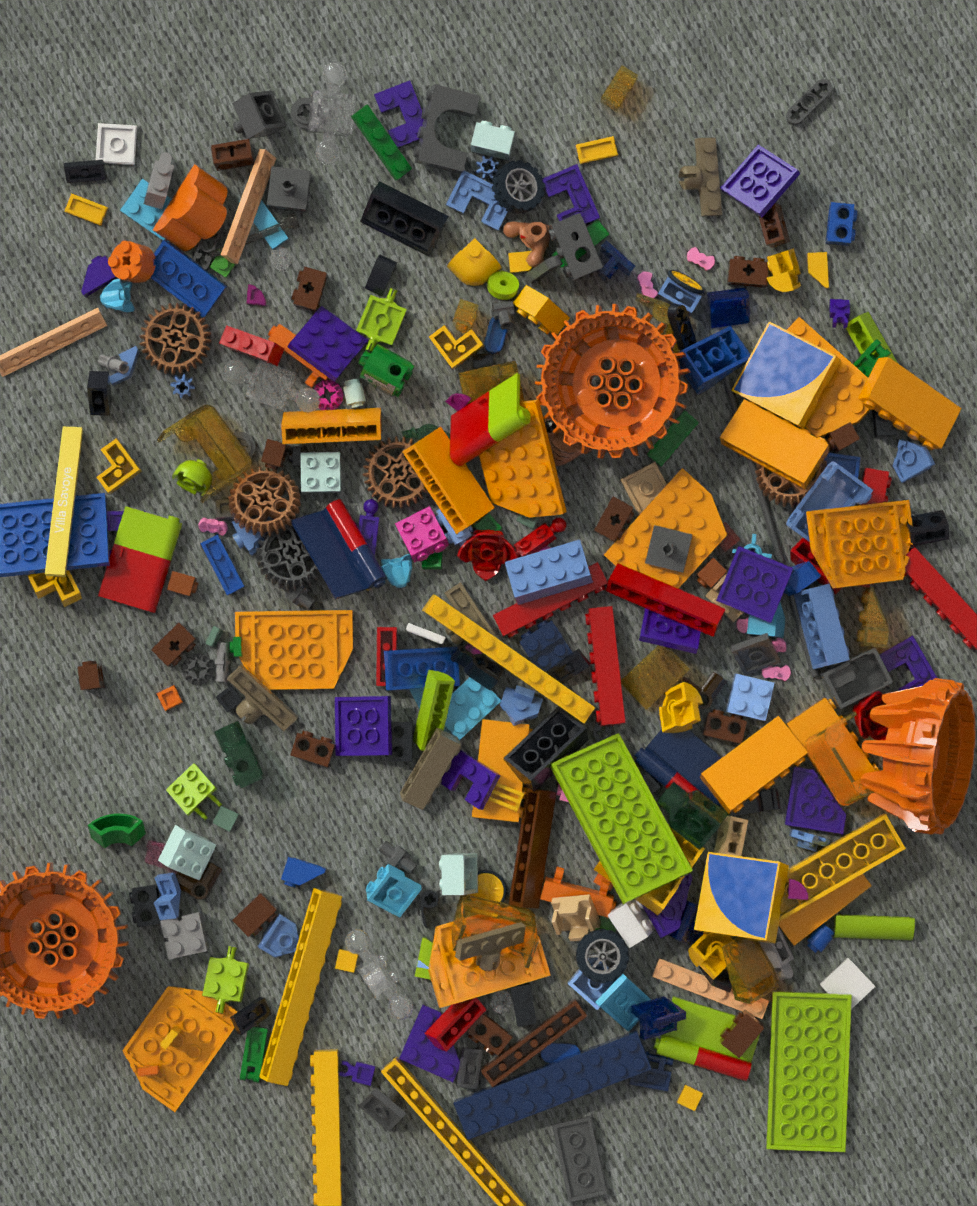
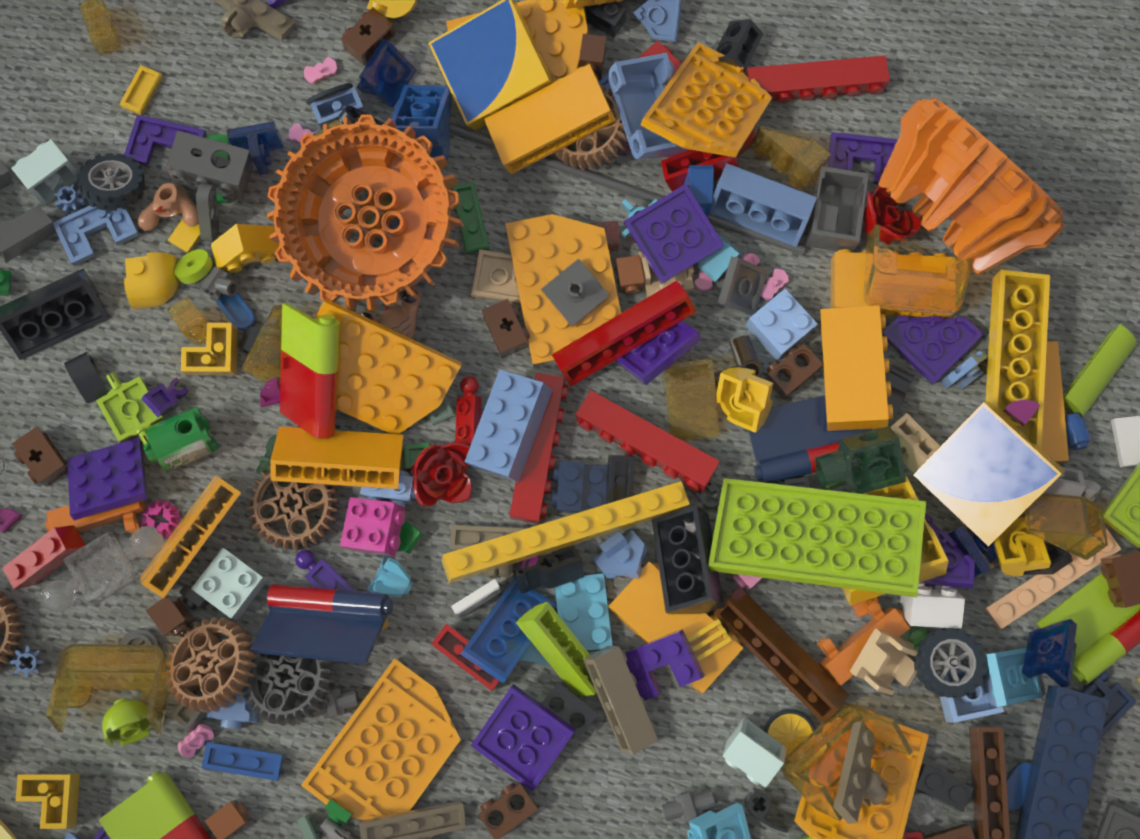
camera: 60 degrees left, 10 degrees down
(354, 393) = (178, 490): light aqua brick -> none
(404, 336) = (162, 398): none -> dark purple plate

